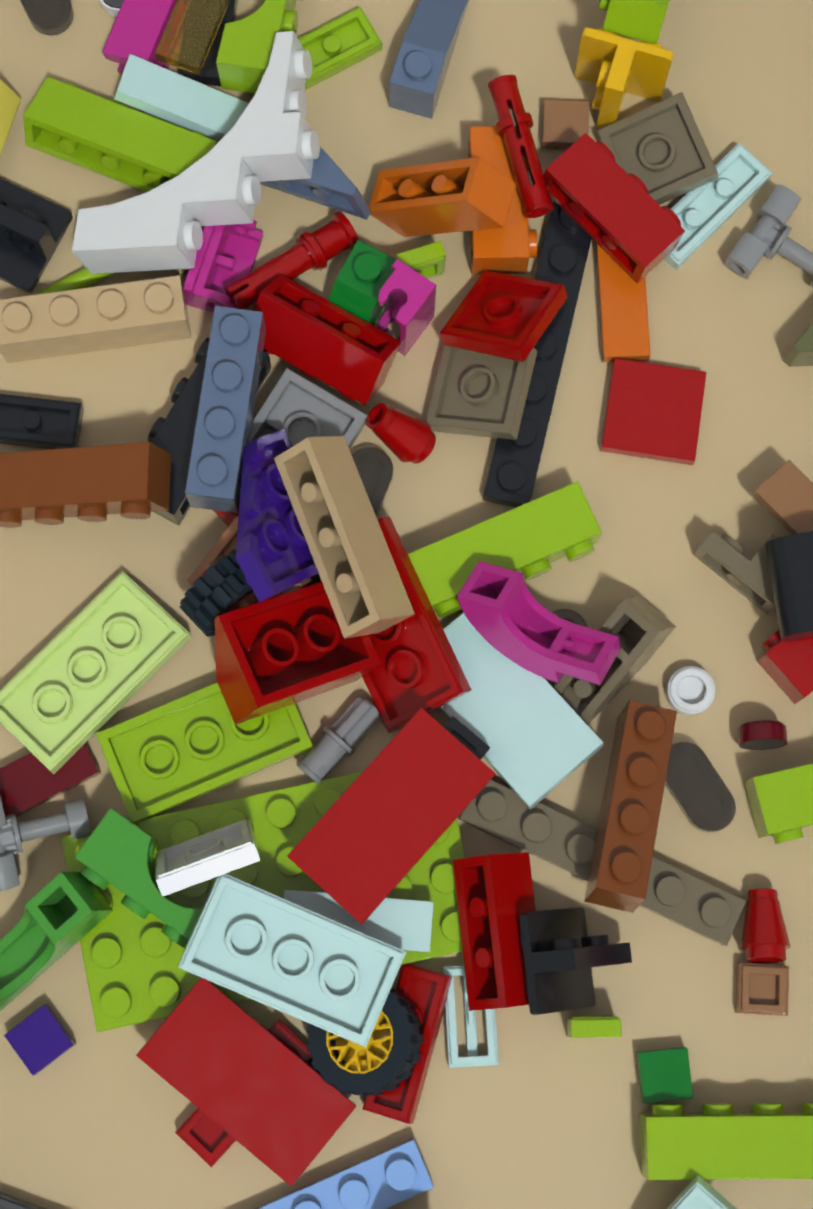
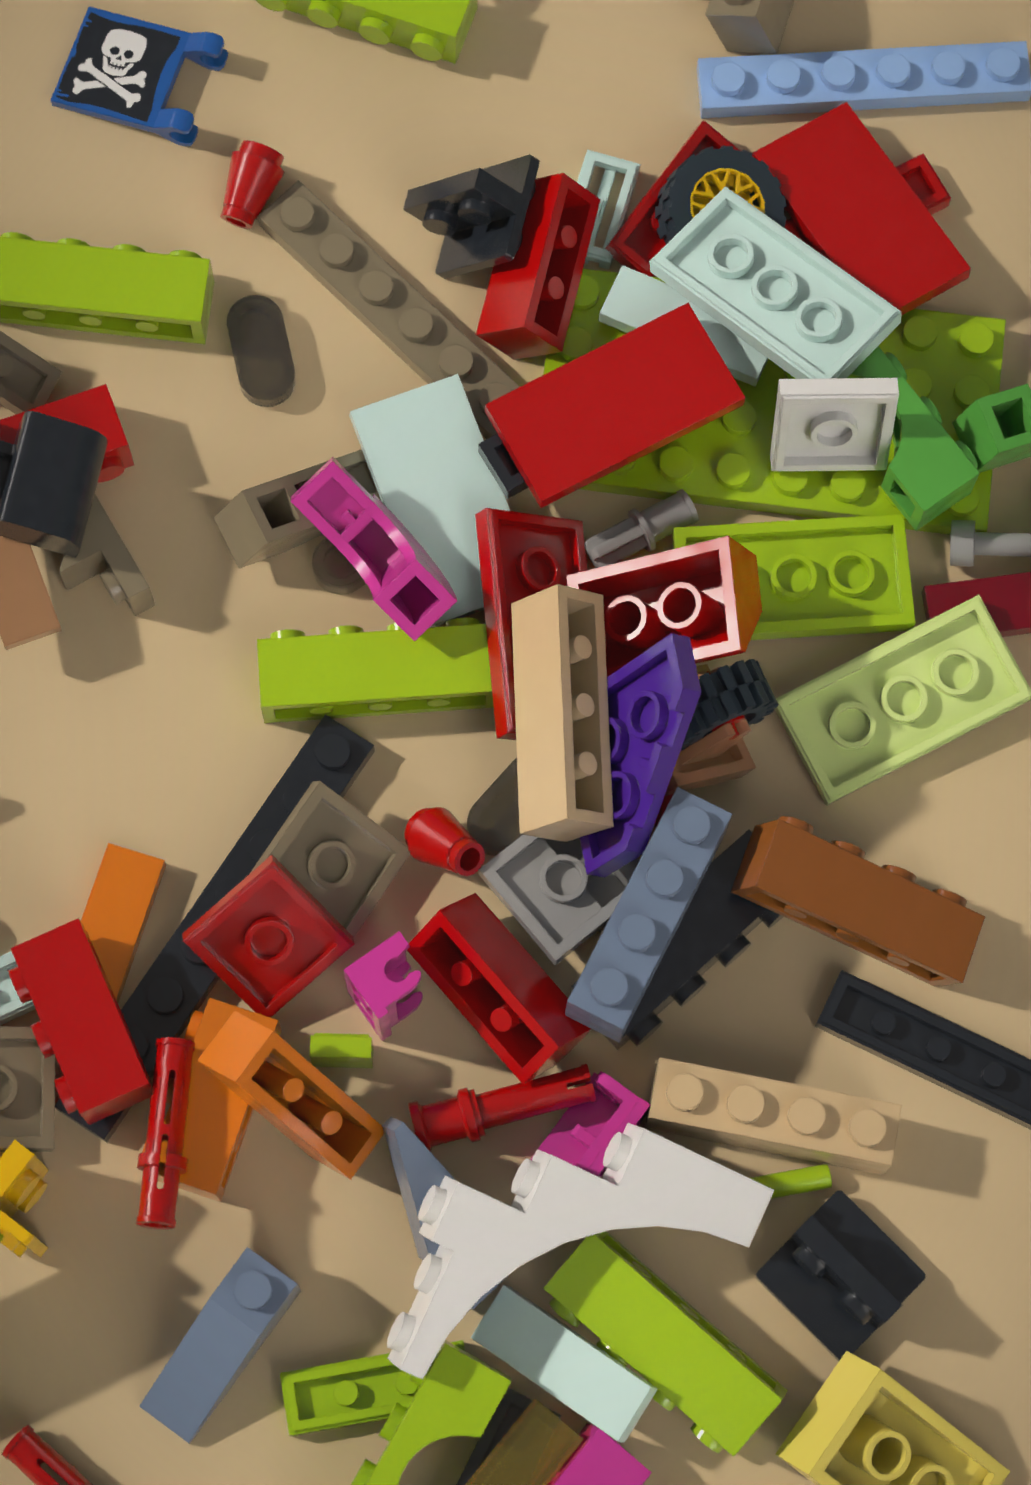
camera: 160 degrees left, 5 degrees down
(360, 282) = (424, 1041): green slope -> none
(563, 122) = (88, 1180): medium nougat tile -> none
(593, 1026) = (472, 146): lime tile -> none
(631, 807) = (346, 335): dark orange brick -> none
(653, 411) = (131, 779): red tile -> none
(664, 1075) = (416, 85): green tile -> none
(690, 691) = (224, 453): white tile -> none
(762, 735) = (166, 373): dark red tile -> none
(762, 989) = (280, 128): medium nougat tile -> none

